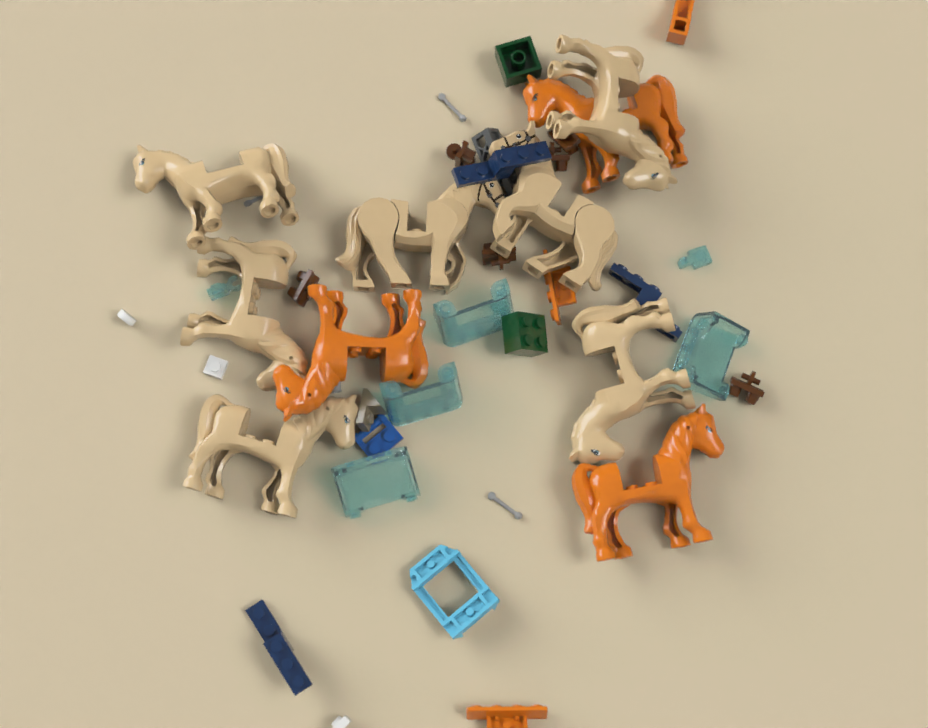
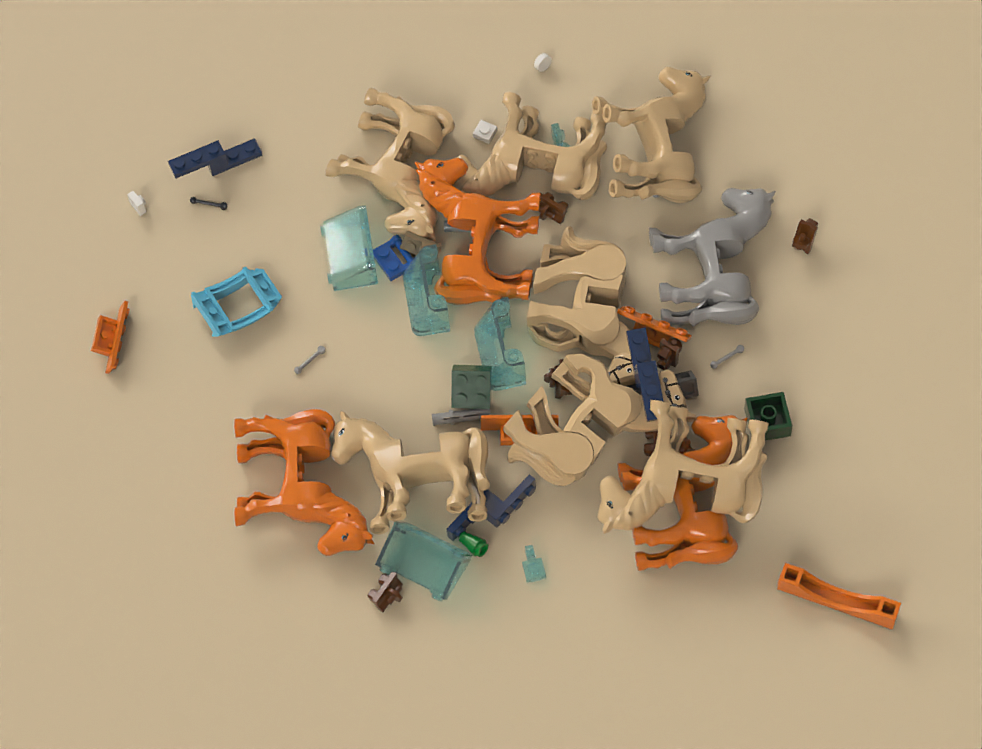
camera: 105 degrees right, 15 degrees down
(318, 42) = (805, 235): none -> reddish brown hips
(331, 630) = (223, 205): none -> black hinge
(397, 112) = (721, 295): none -> light grey animal
(437, 172) = (655, 329): none -> orange bracket
(553, 351) = (438, 418): none -> light grey pin
(684, 313) = (474, 544): none -> green cone

